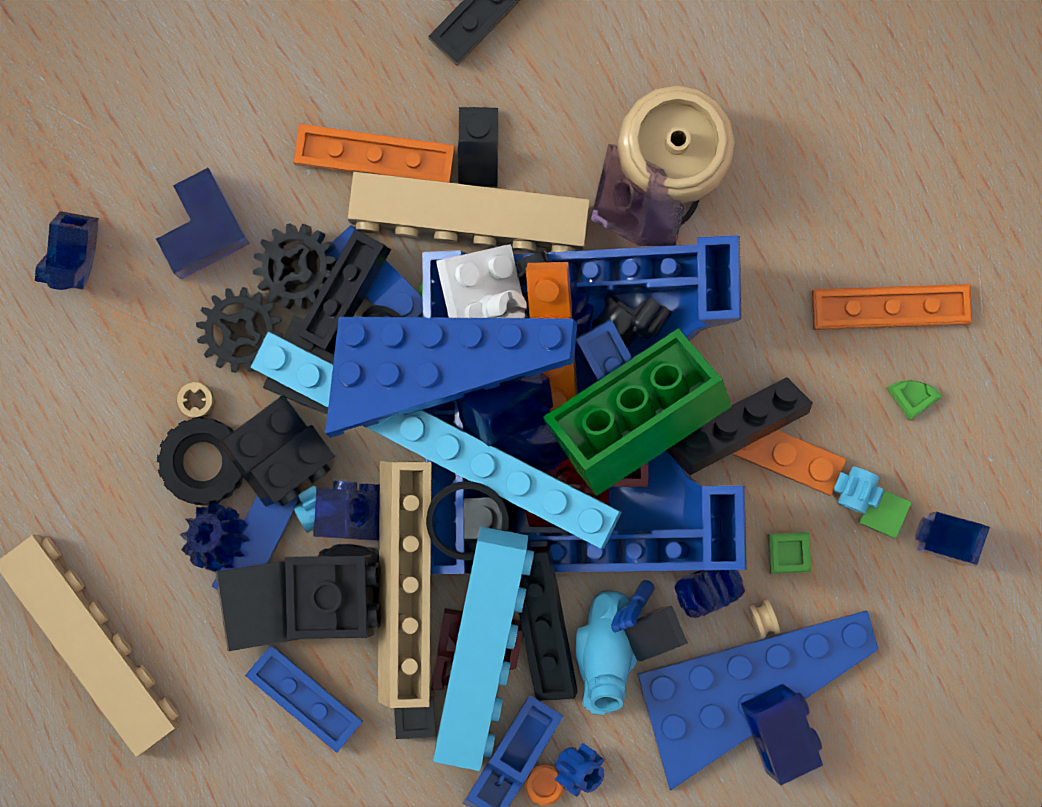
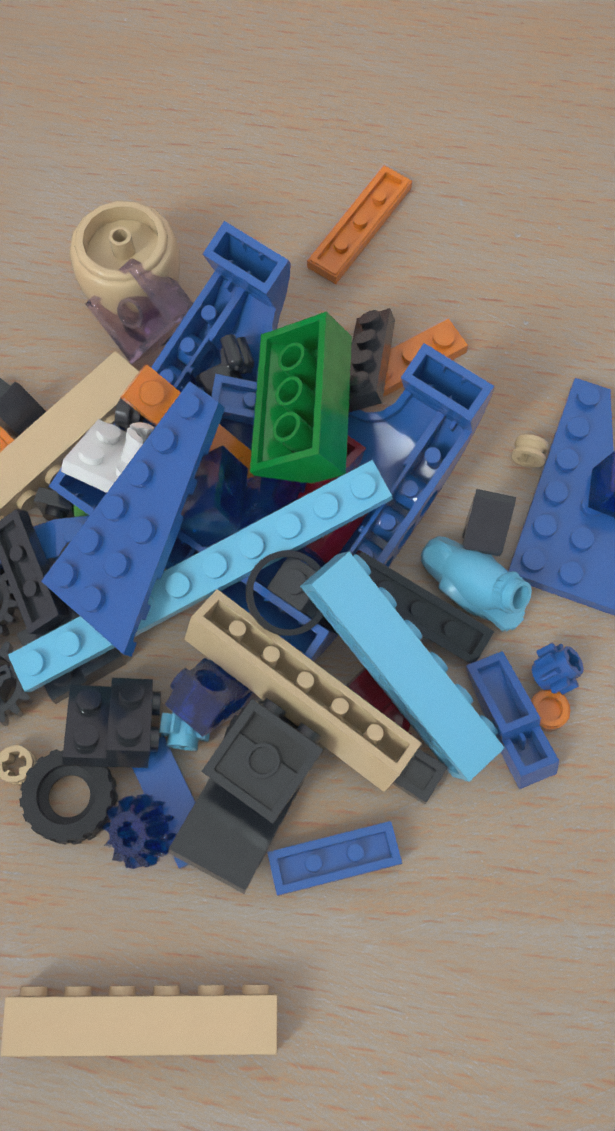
camera: 50 degrees left, 15 degrees down
(414, 259) = (53, 504): none -> black plate
(629, 614) = (456, 532): blue piece -> none
(708, 591) = (479, 467): clear blue gear -> none
(789, 553) = (498, 406): bright green tile -> none
(858, 490) = (479, 321): medium azure gear -> none
(888, 516) = (507, 321): bright green tile -> none
(913, 396) = (435, 251): bright green tile -> none
(951, 538) = (565, 279): clear blue slope -> none

